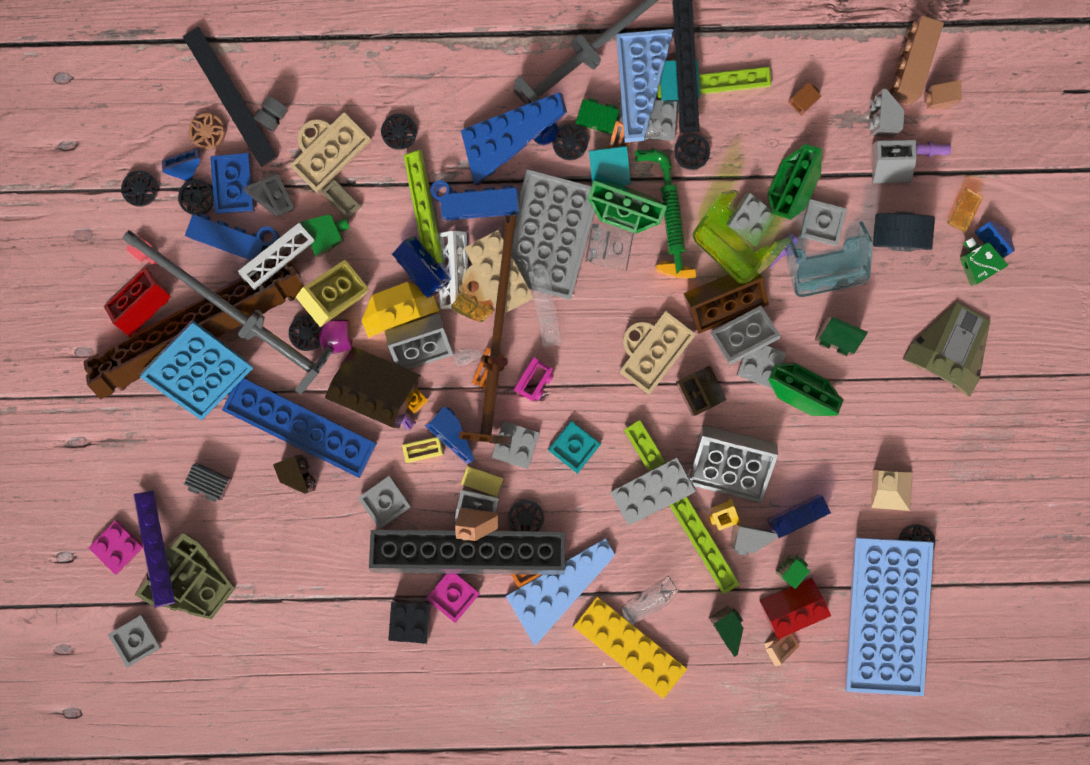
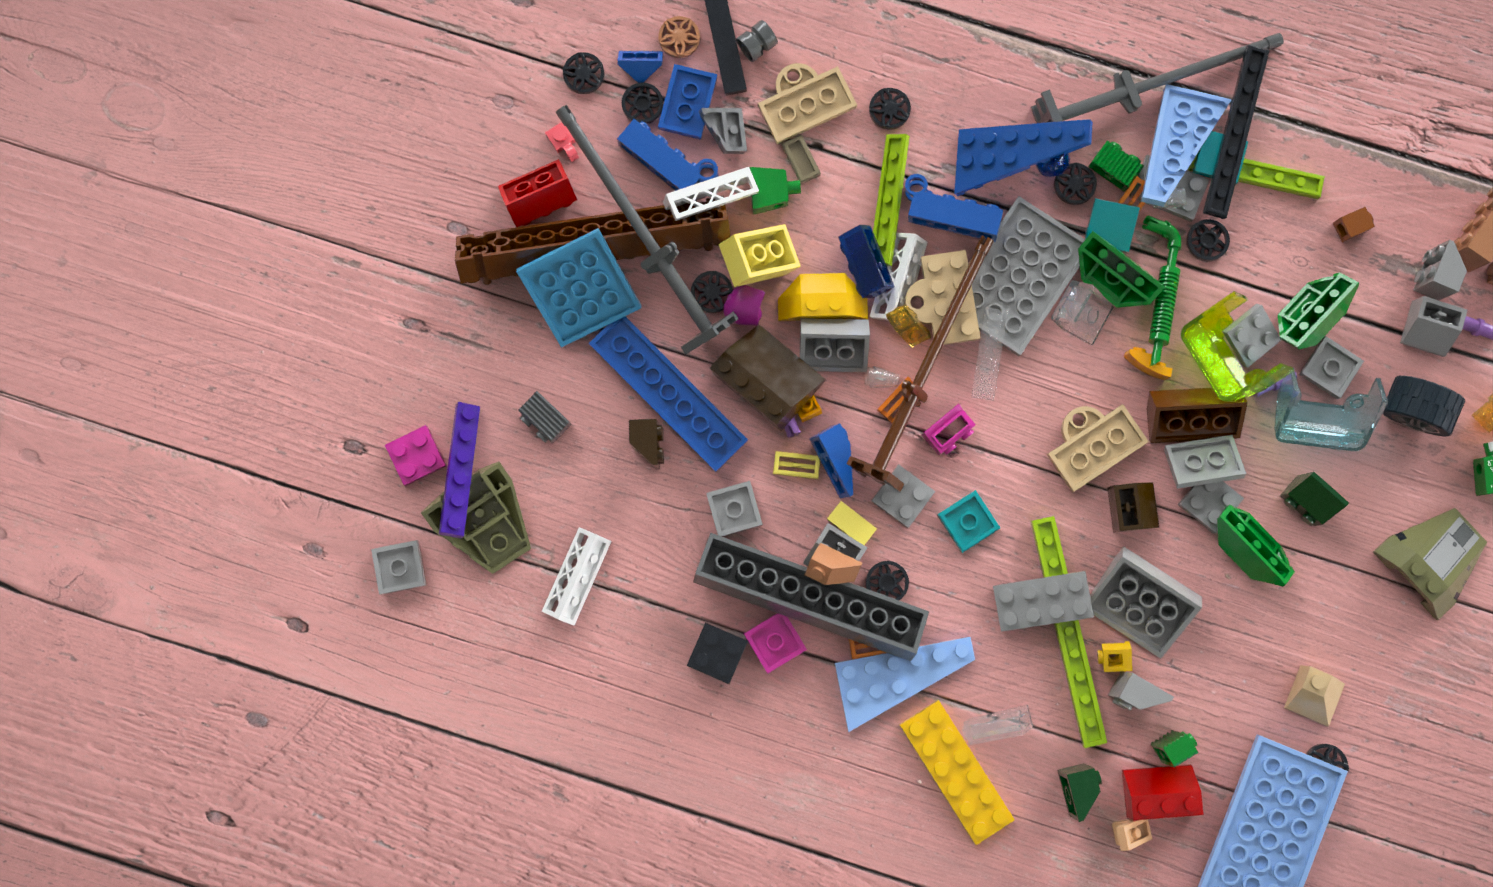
camera: 15 degrees right, 5 degrees down
(281, 599) = (579, 577): none -> white fence
(799, 516) = (1202, 687): clear blue brick -> none

